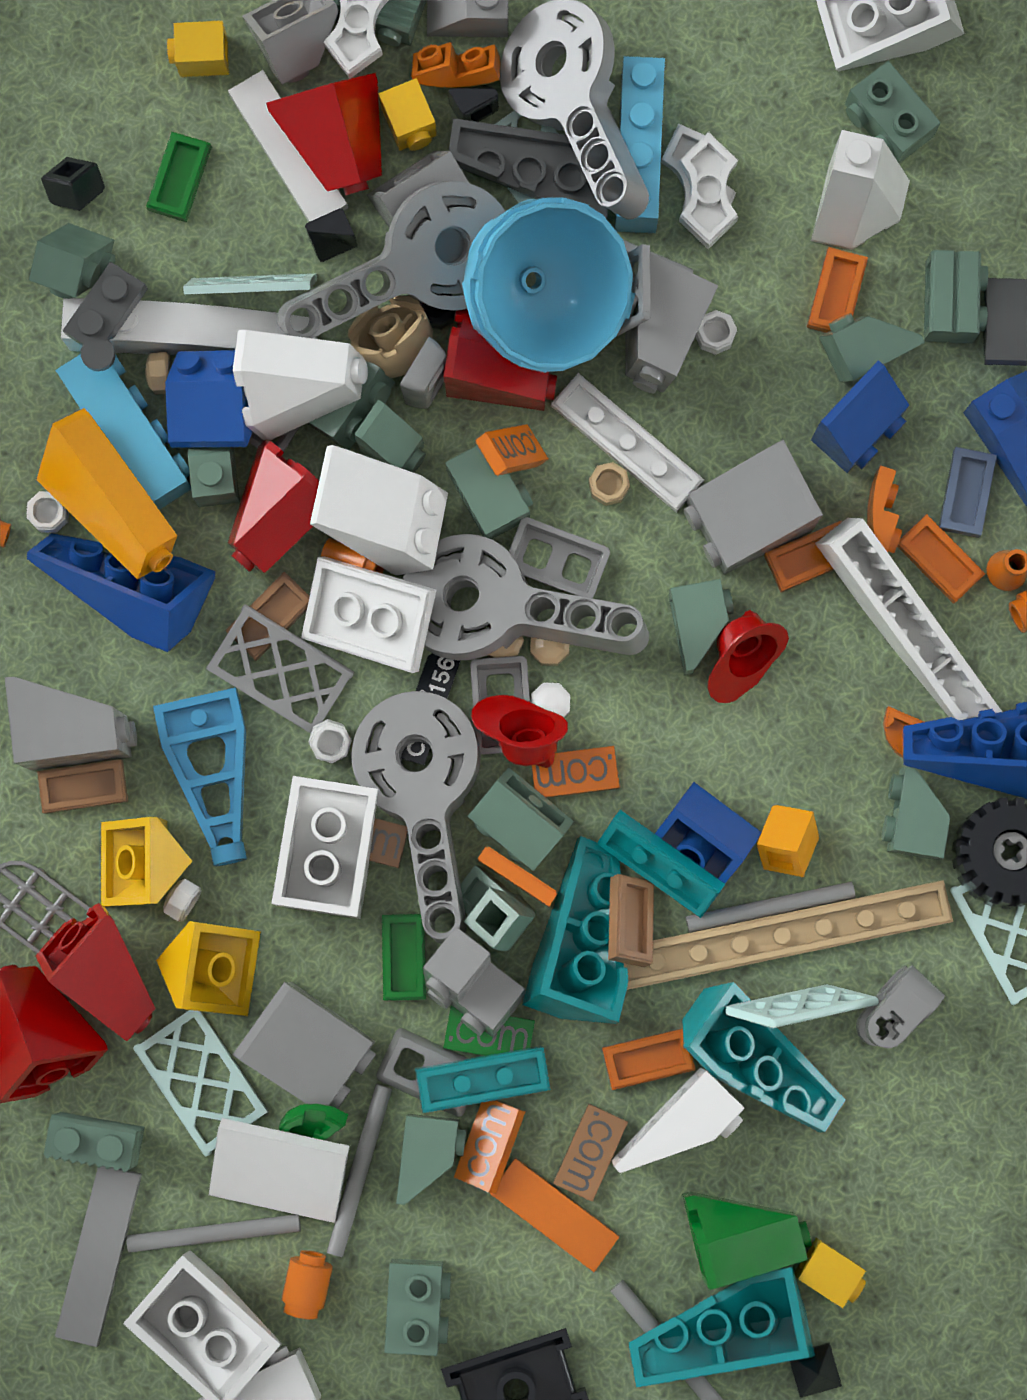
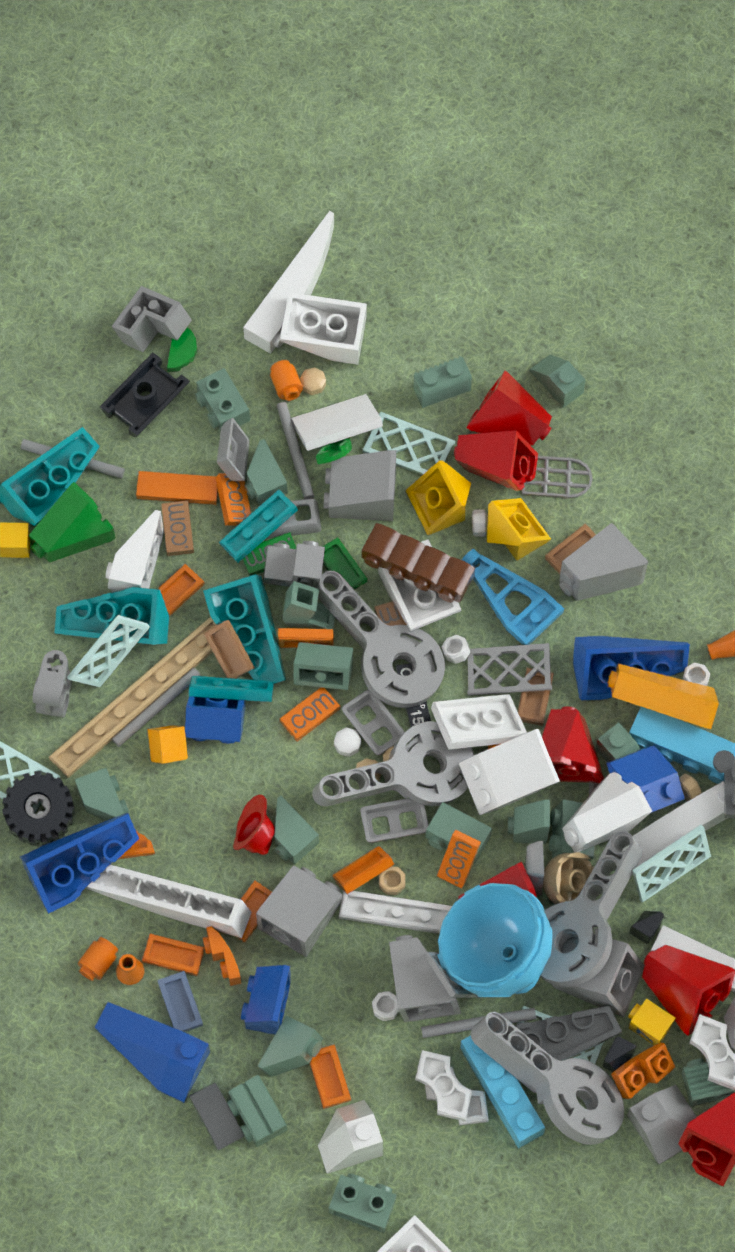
camera: 145 degrees right, 15 degrees down
(98, 1256) = (402, 333): light grey tile -> none
(213, 1233) = (351, 378): light grey bar -> none
(268, 1262) = (313, 381): none -> tan tile
(310, 869) = (417, 562): none -> reddish brown brick
(449, 1214) = (233, 461): none -> light grey piece
(523, 730) = (355, 708): red piece -> none
(638, 517) = (363, 870): none -> orange tile

